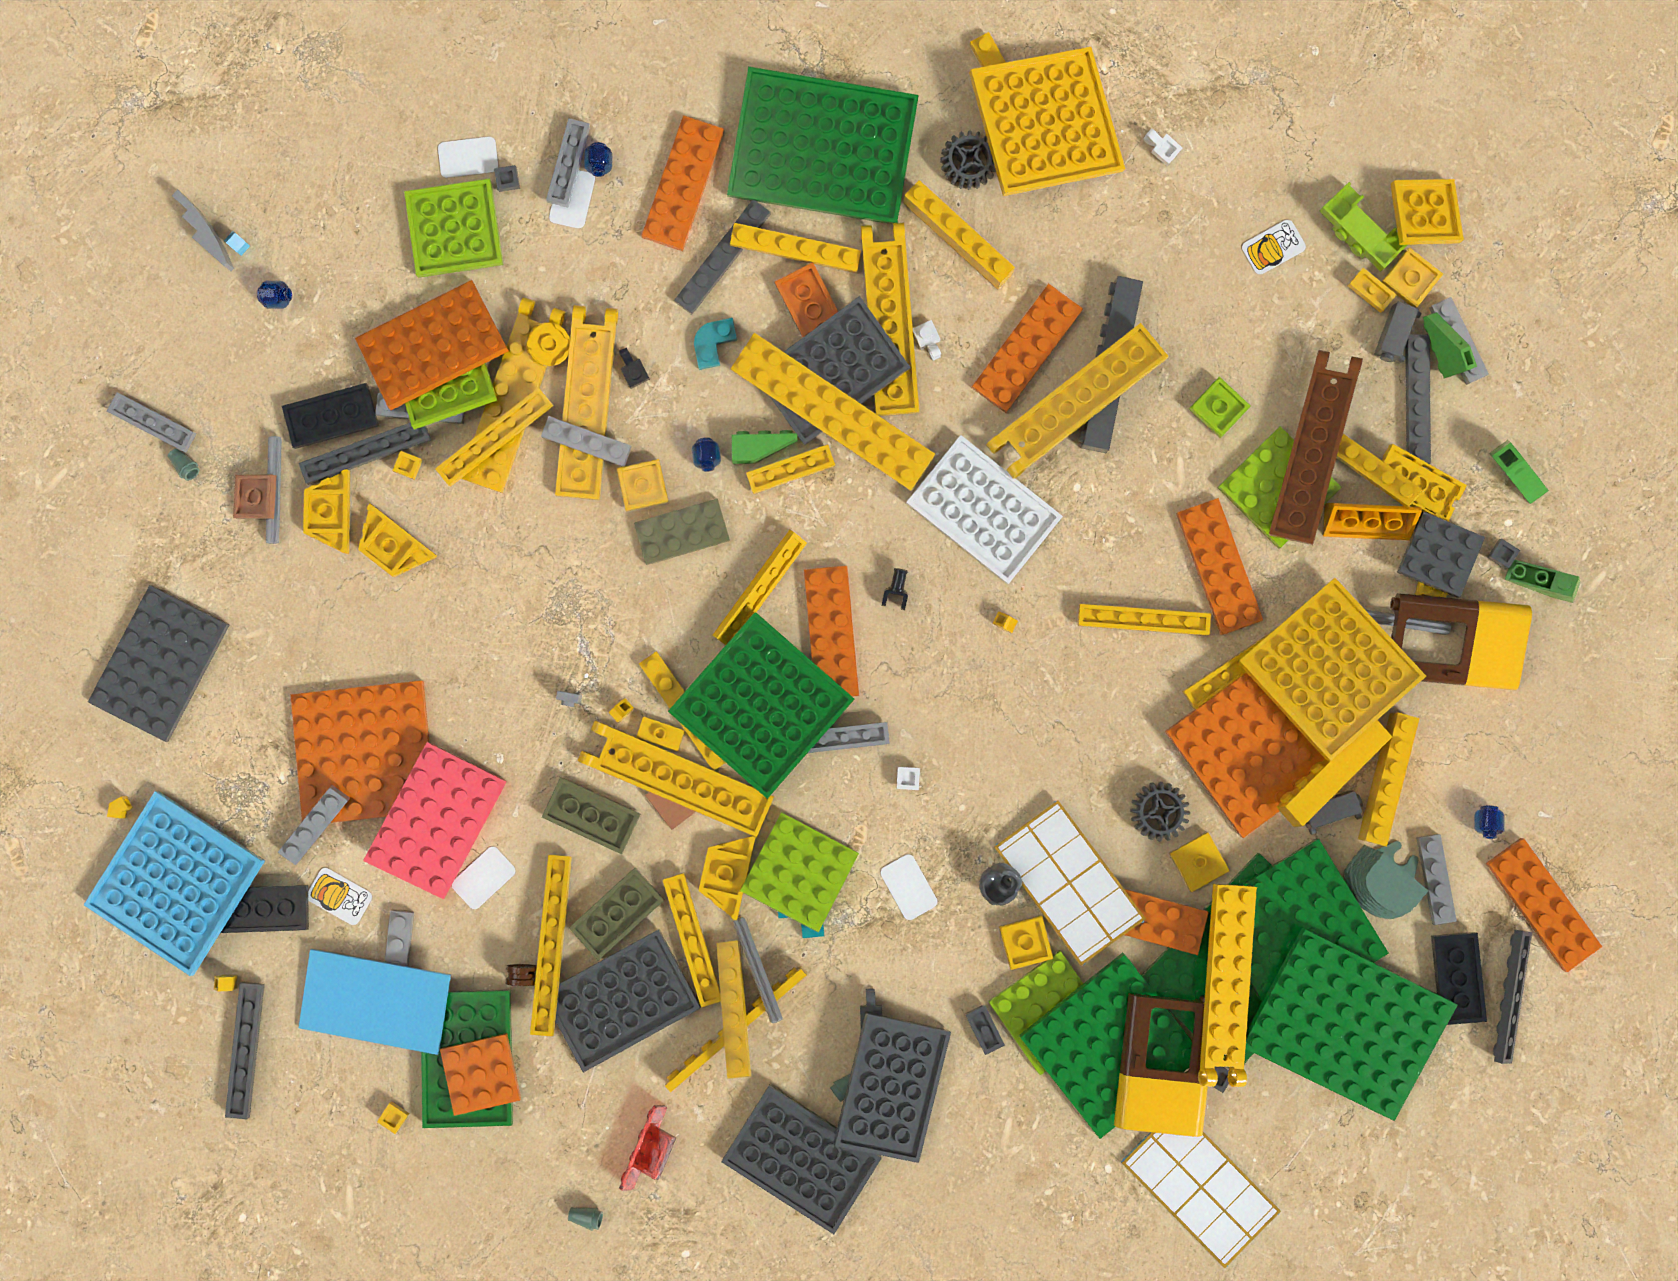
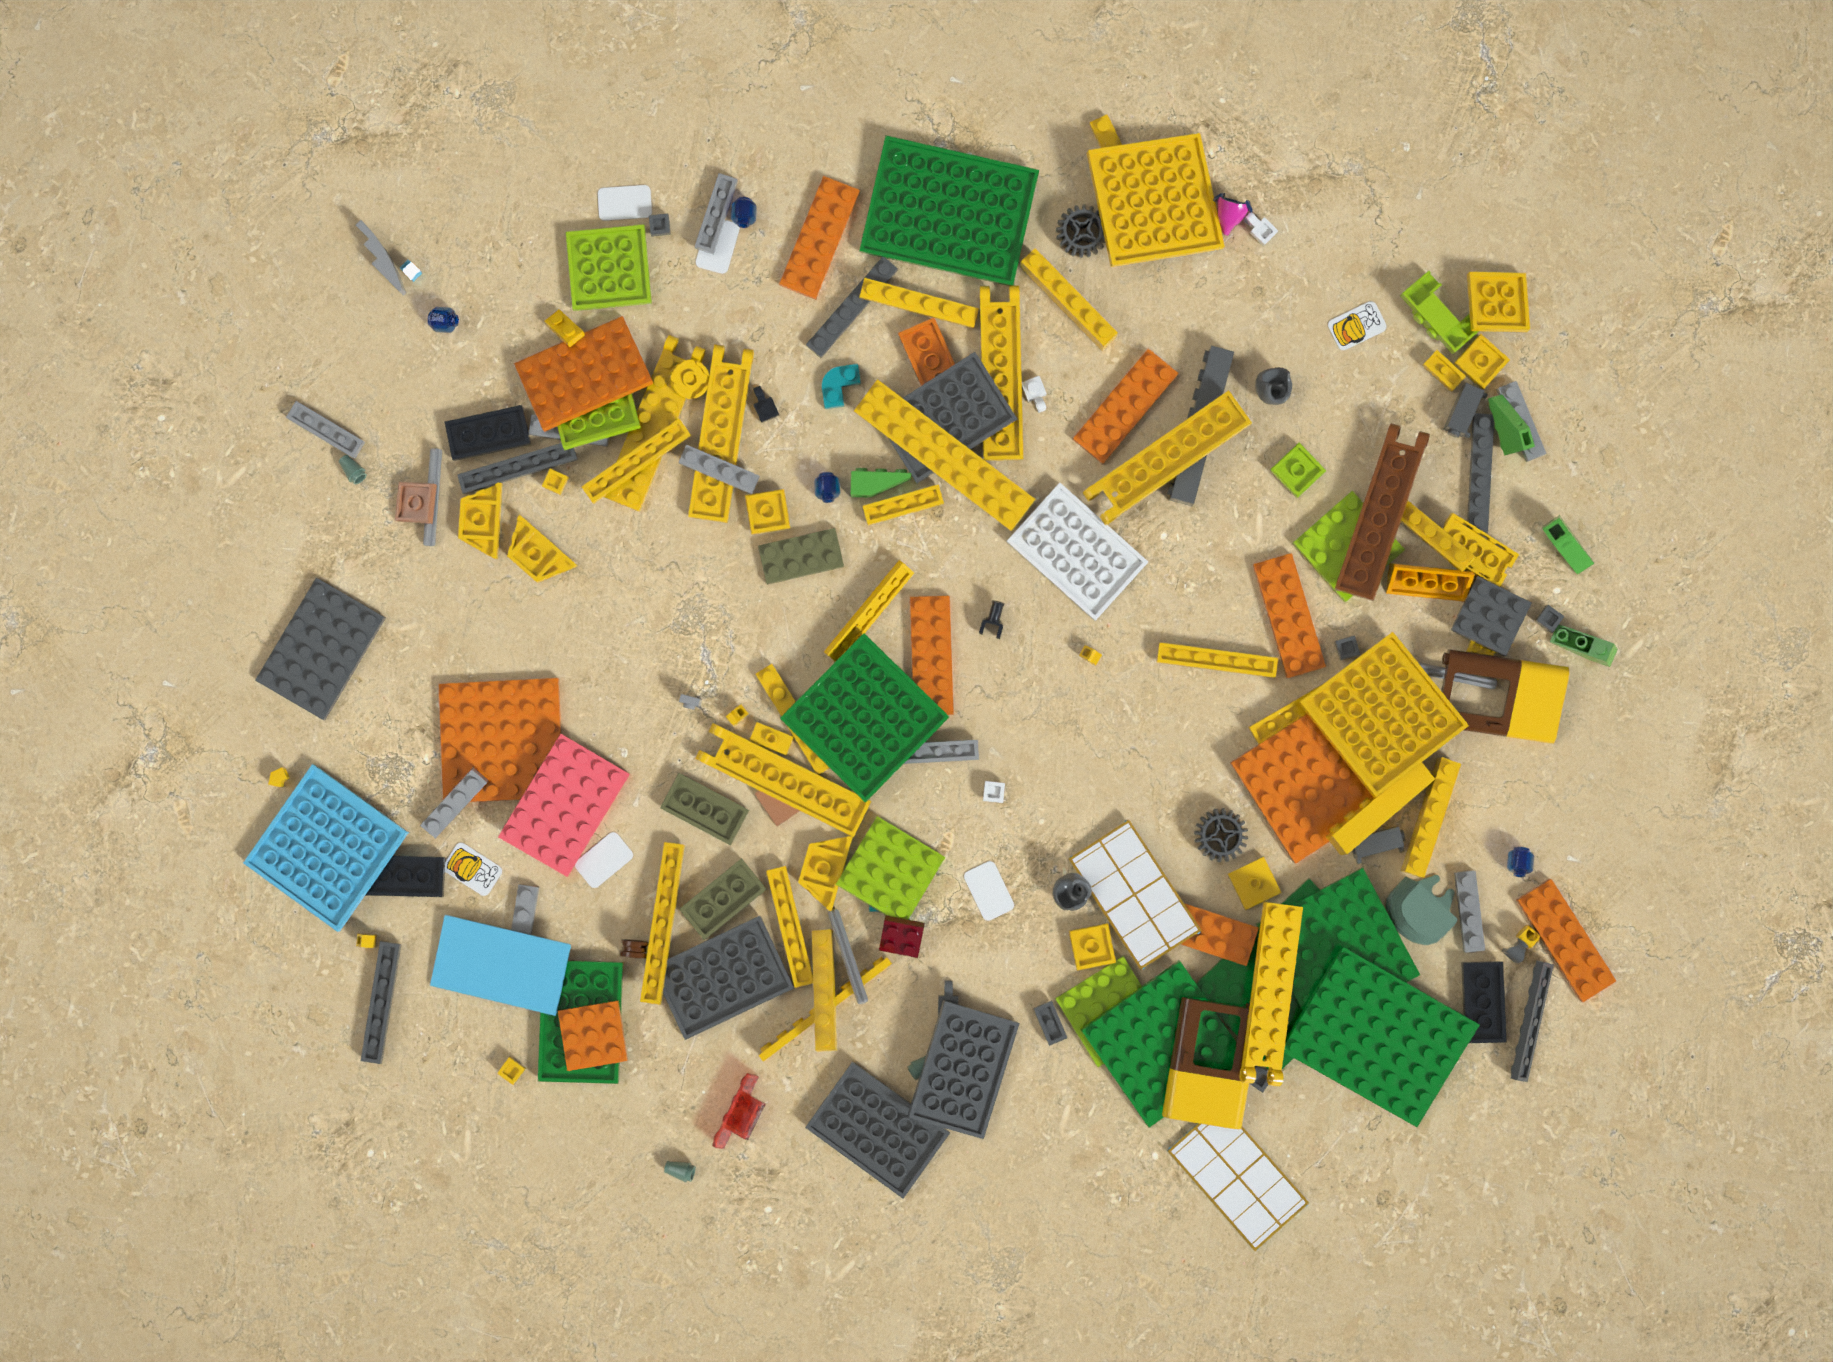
camera: 10 degrees right, 0 degrees up
(408, 296) = (564, 328): none -> yellow plate
(815, 944) = (901, 936): none -> dark red plate
(1130, 130) = (1231, 212): none -> dark pink hat
(1188, 316) = (1274, 385): none -> dark grey piece
(1285, 598) = (1347, 647): none -> dark grey plate
(1501, 906) = (1526, 938): none -> leg

